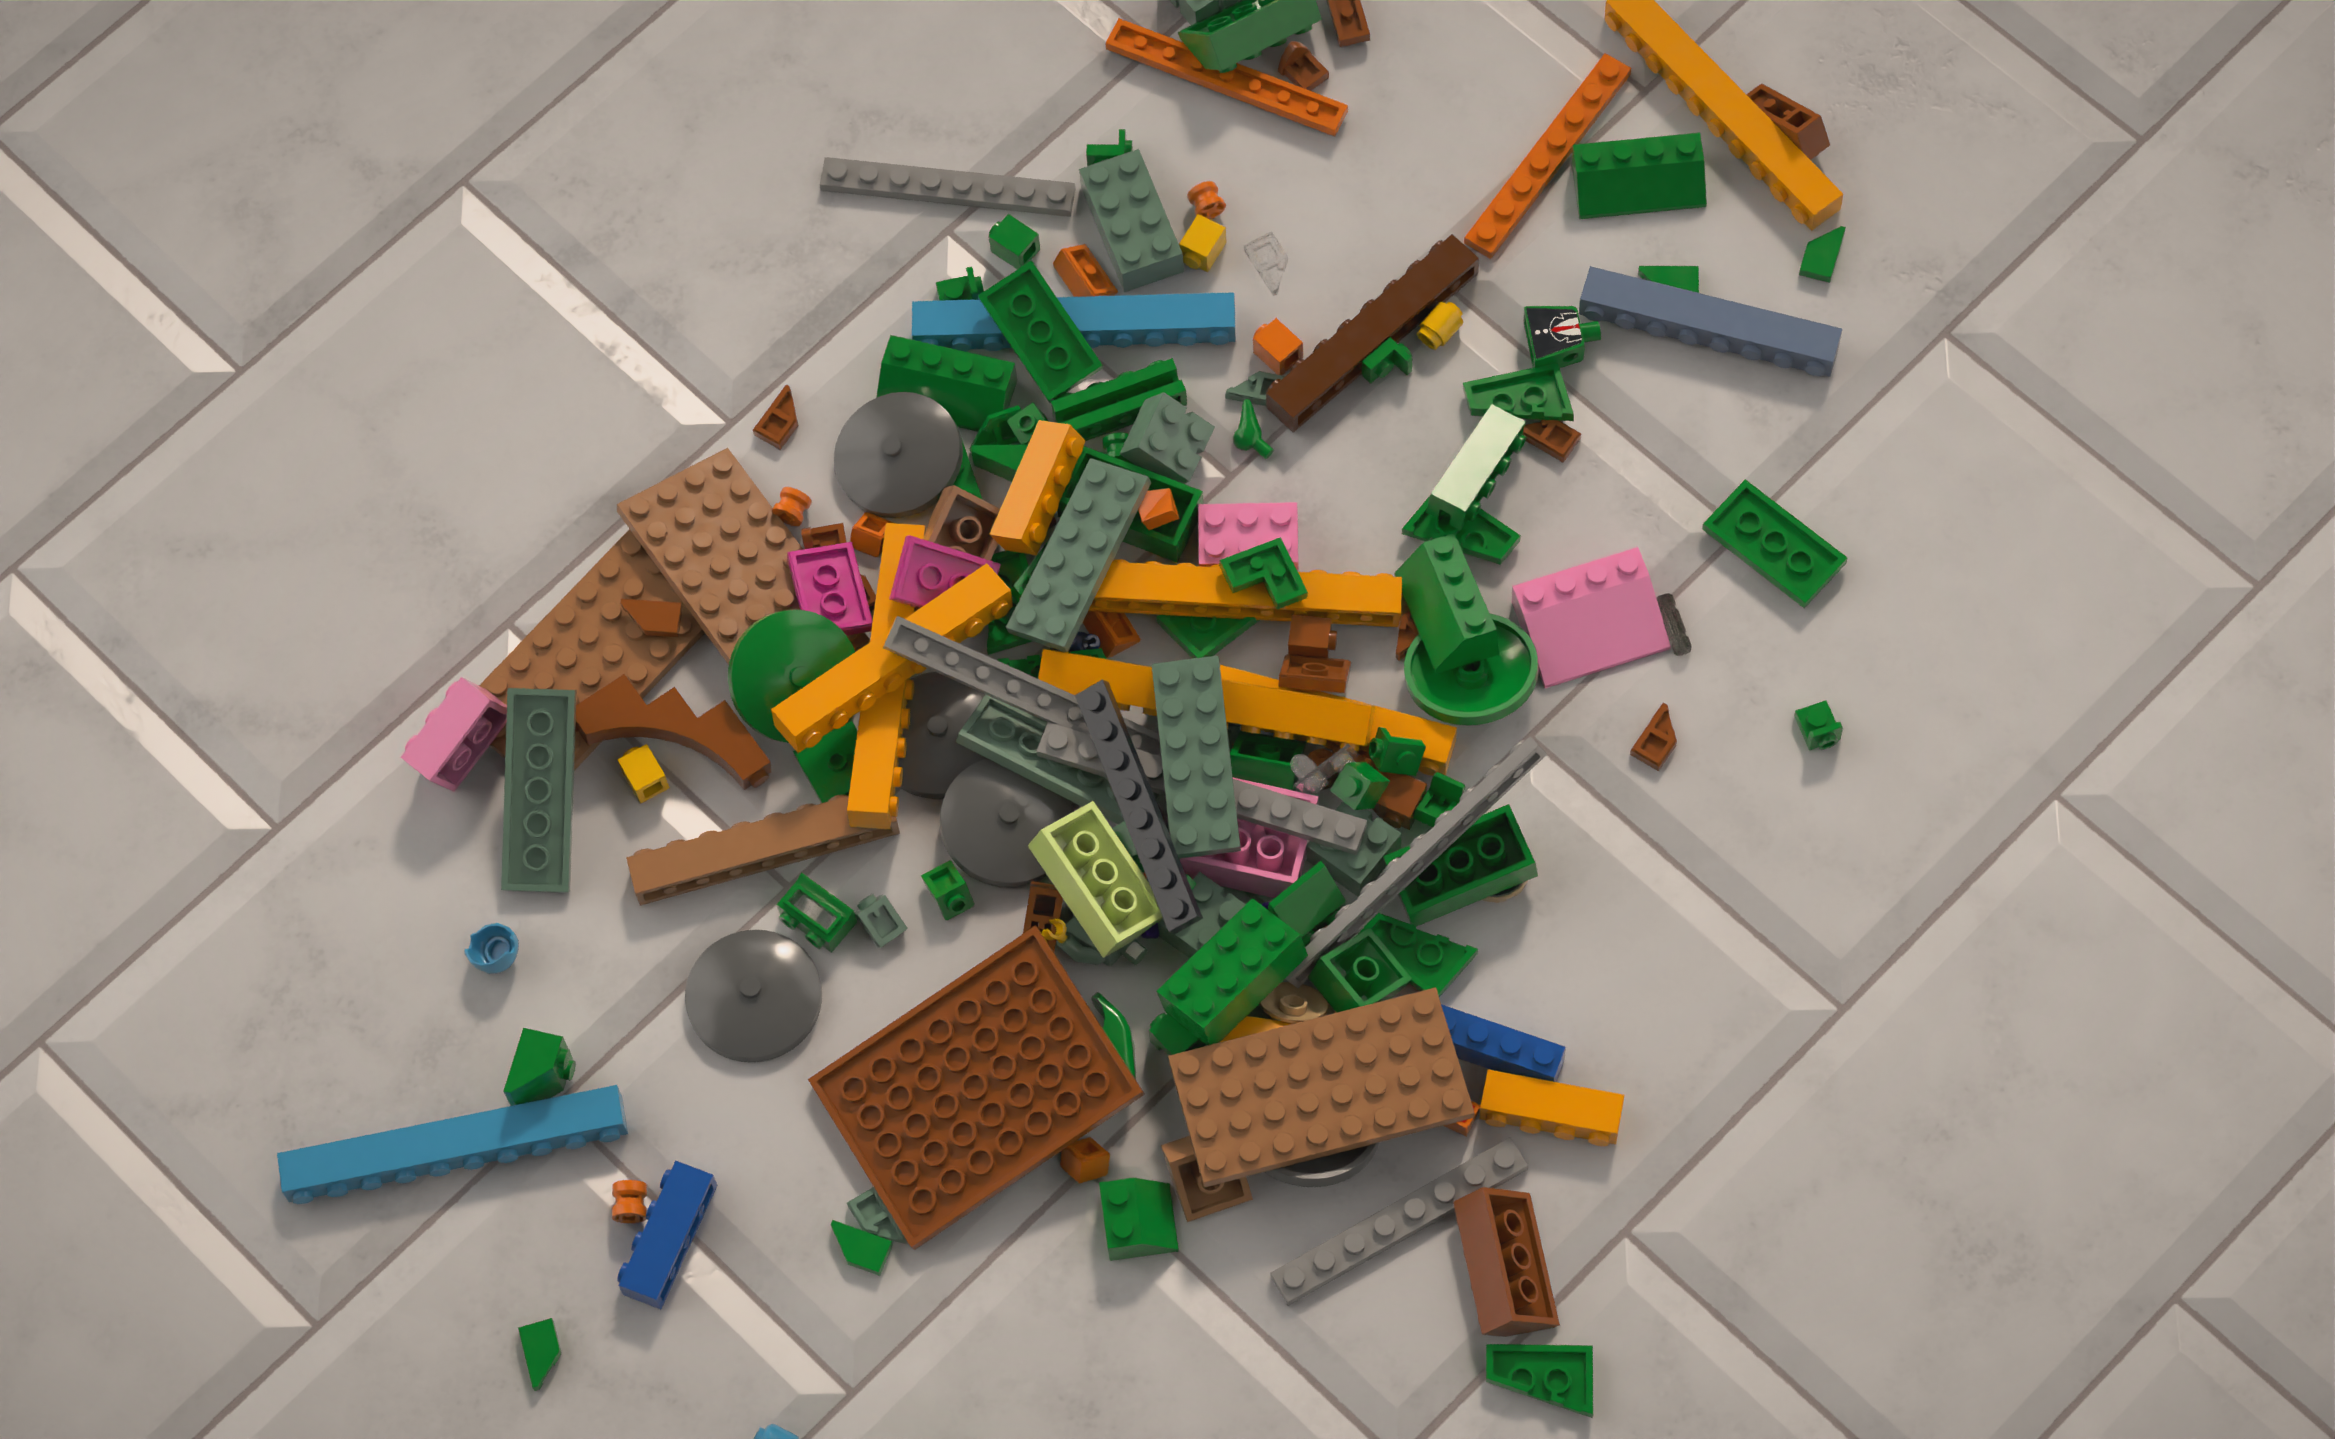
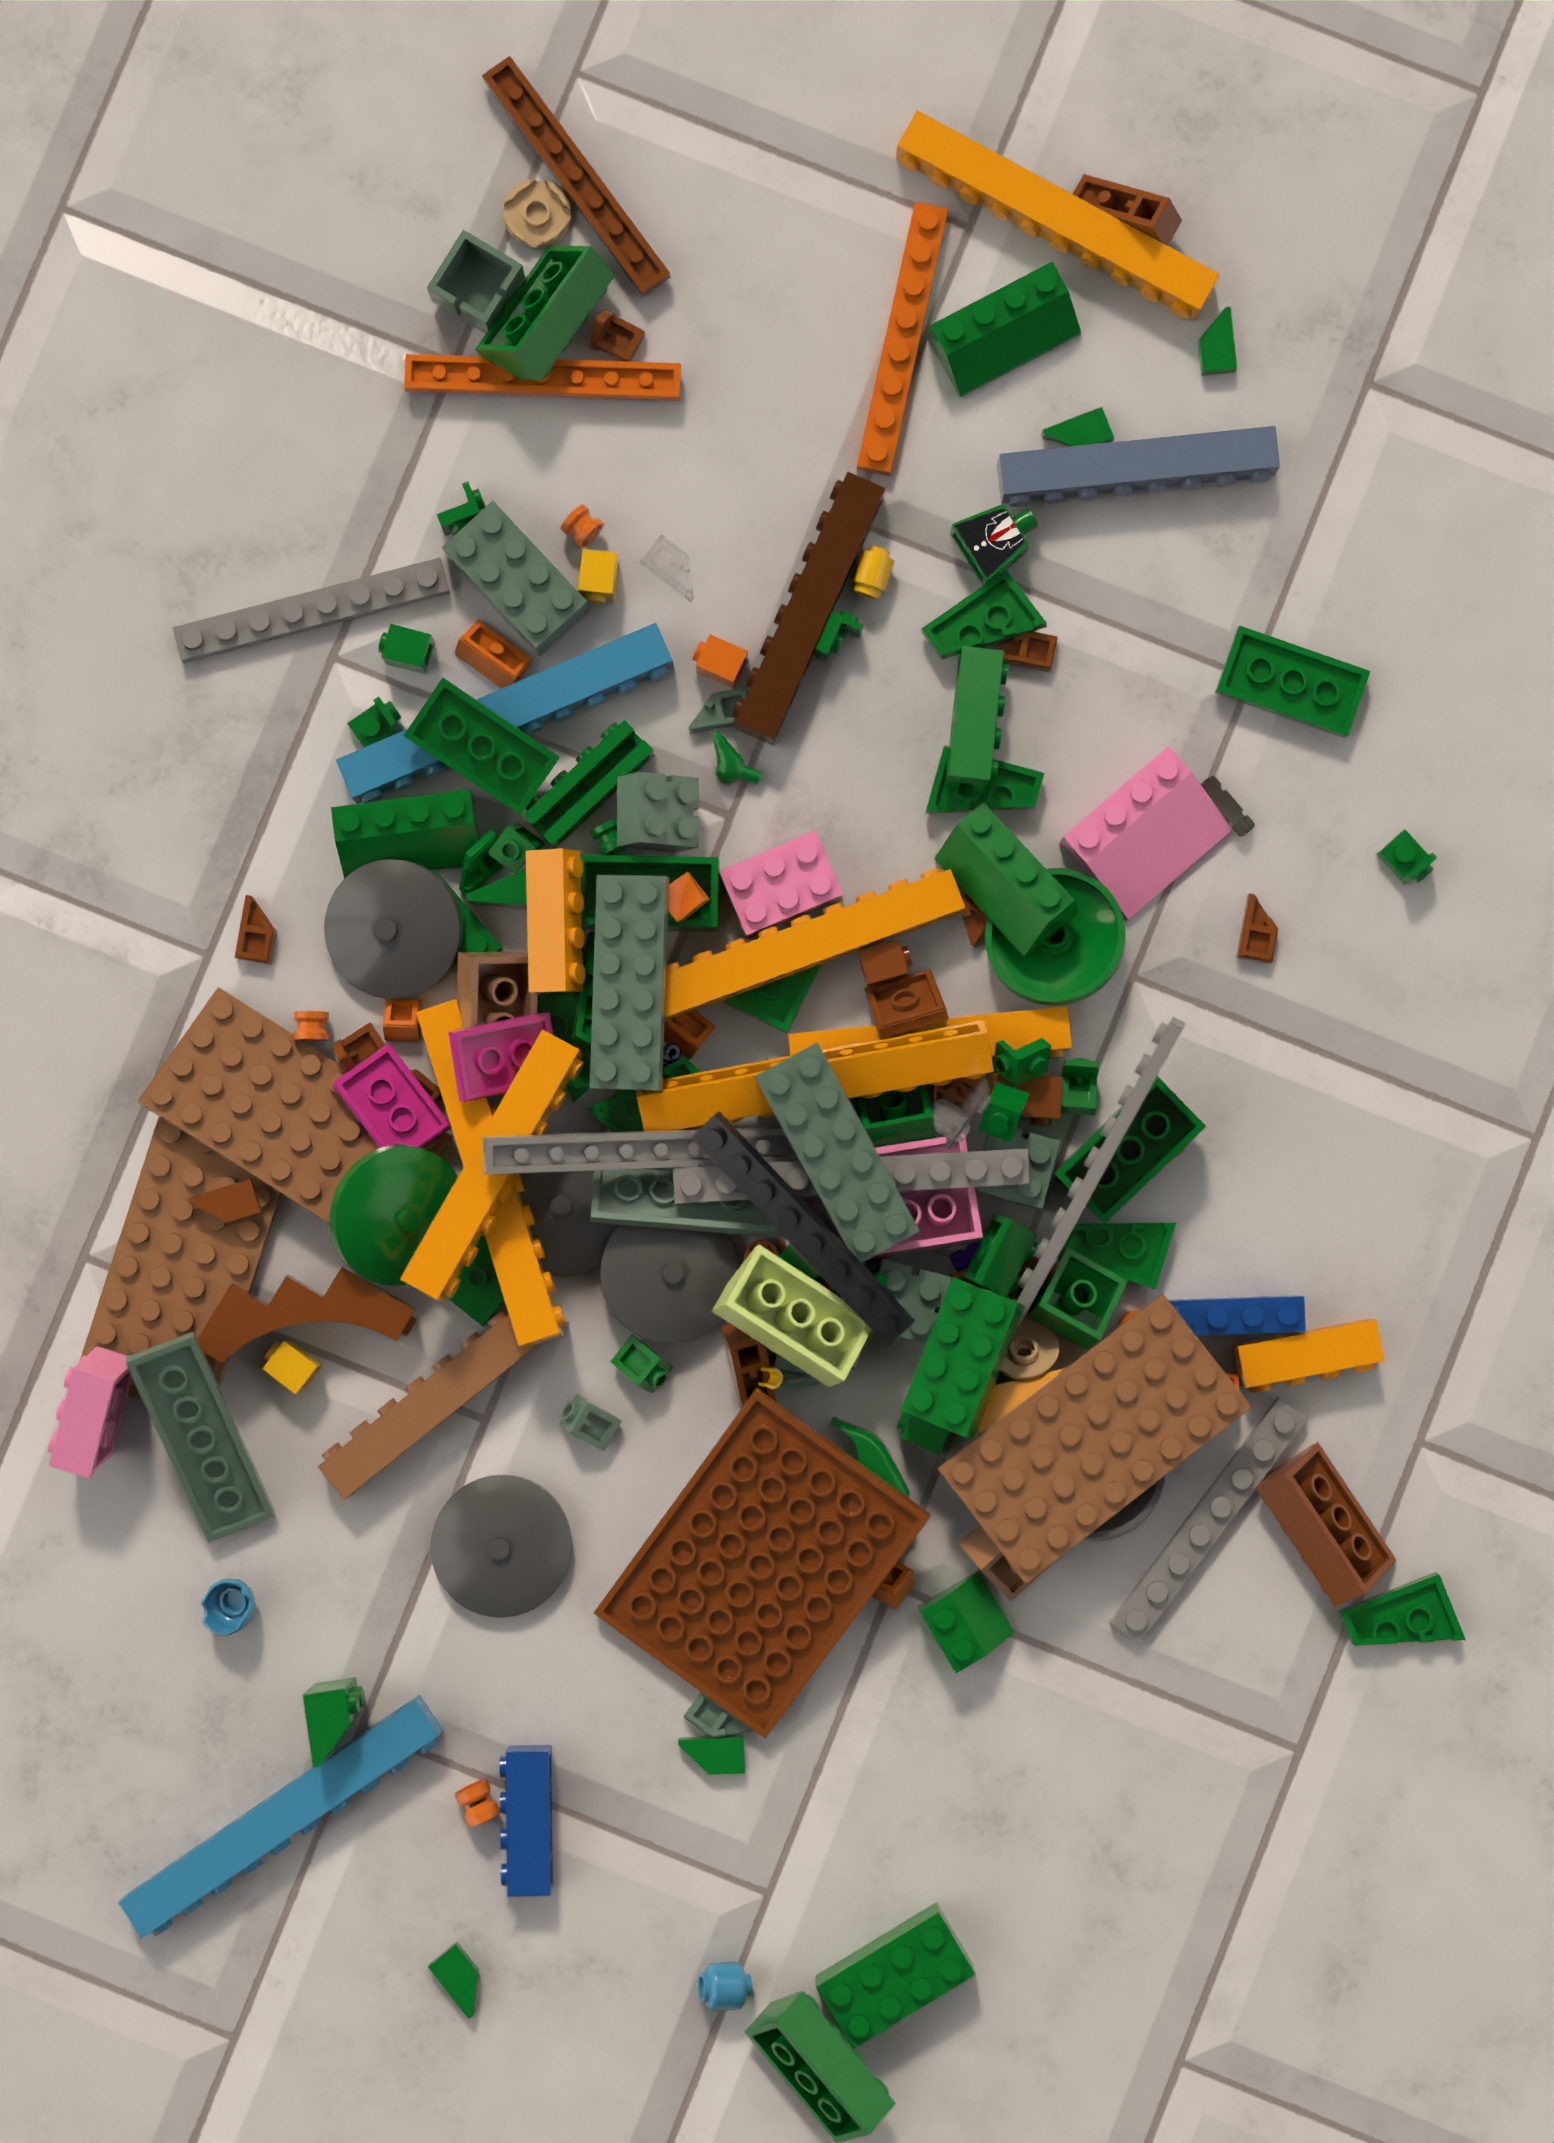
camera: 25 degrees left, 20 degrees up
(816, 914) = (525, 1443): green window -> none
(1266, 564) = (822, 915): green plate -> none

